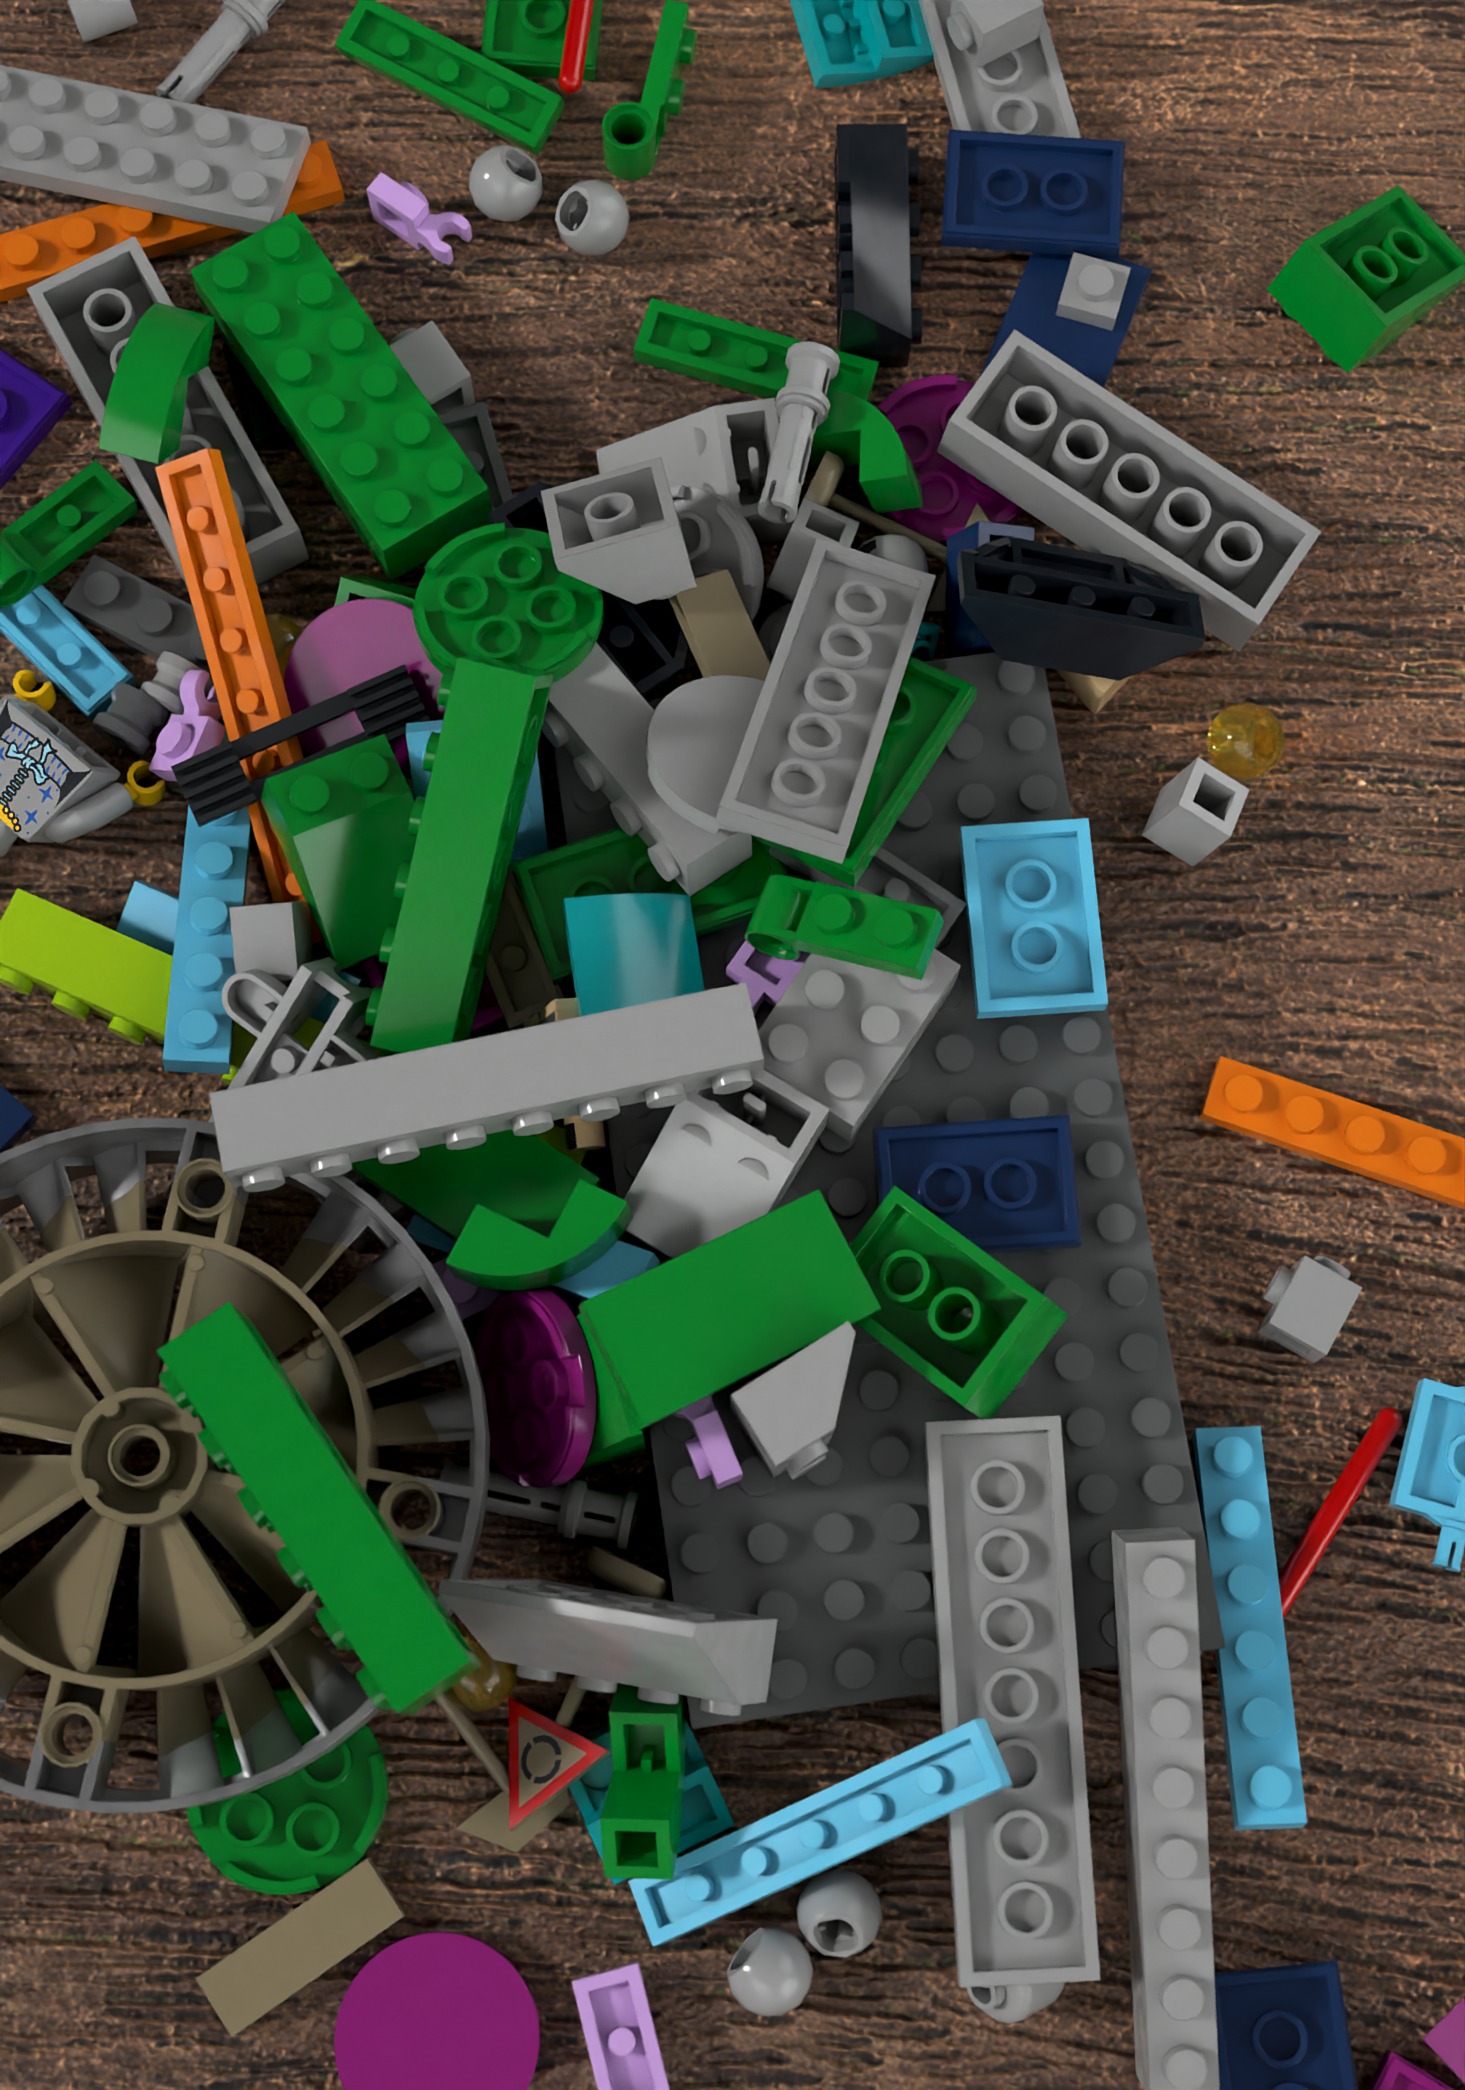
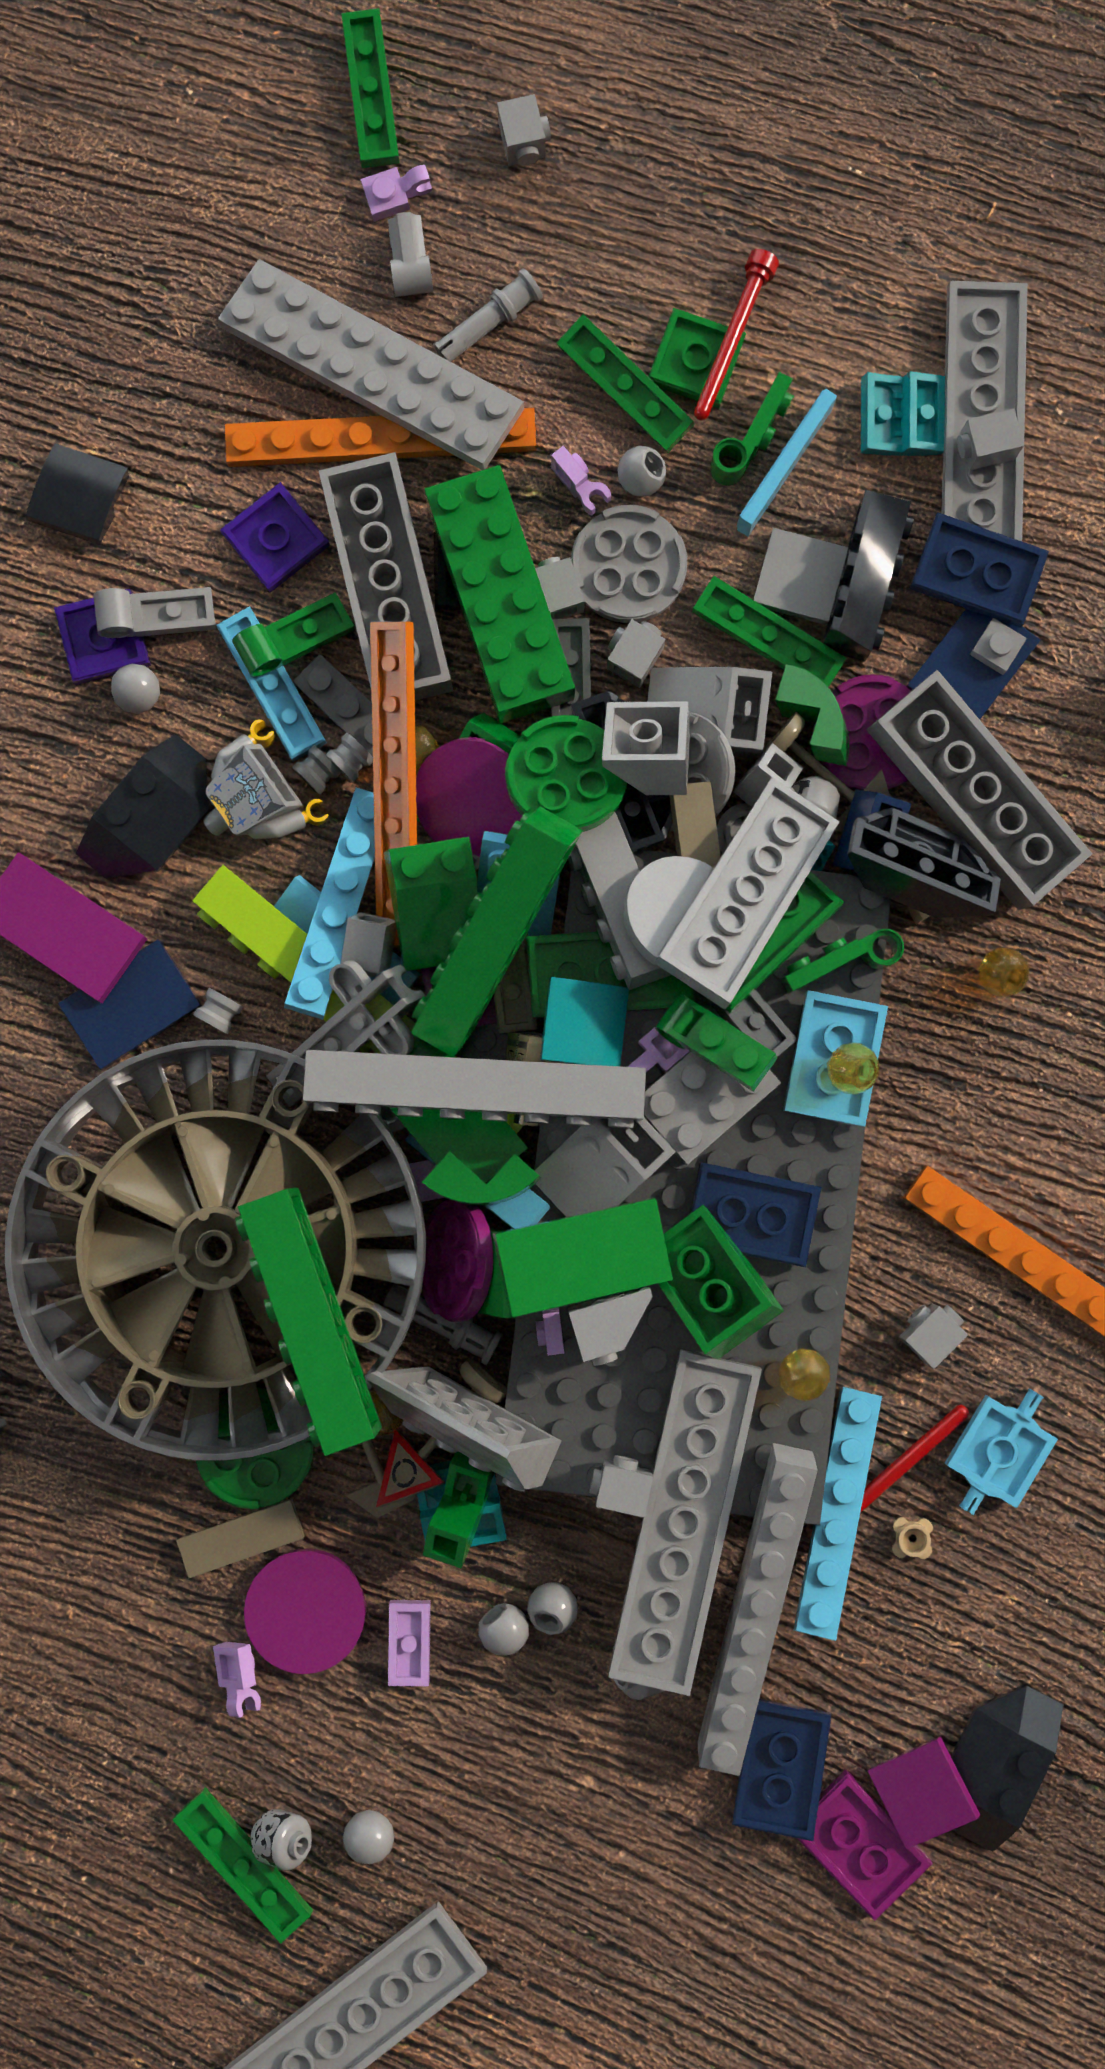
camera: 20 degrees right, 10 degrees up
(62, 1108) = (218, 1010): none -> light grey wheel
(151, 382) = (383, 561): green brick -> none
(191, 732) = (352, 794): lavender plate -> none
(217, 783) = (359, 834): black container -> none
(524, 317) = (629, 563): none -> light grey tile
(565, 432) = (635, 651): none -> light grey brick
(592, 217) = (691, 509): light grey piece -> none
(711, 122) = (786, 462): none -> medium azure tile
(778, 271) = (800, 576): none -> light grey tile
(801, 409) = (787, 685): light grey pin -> none
(823, 1831) = (557, 1566): medium azure plate -> none
(894, 1664) = (622, 1486): none -> light grey brick
(997, 762) = (841, 953): none -> green plate
(1063, 914) = (853, 1068): none -> clear yellow piece
(1129, 1406) = (804, 1374): none -> clear yellow piece
(1195, 812) = (958, 1011): light grey brick -> none
(1394, 1644) = (921, 1546): none -> tan plate

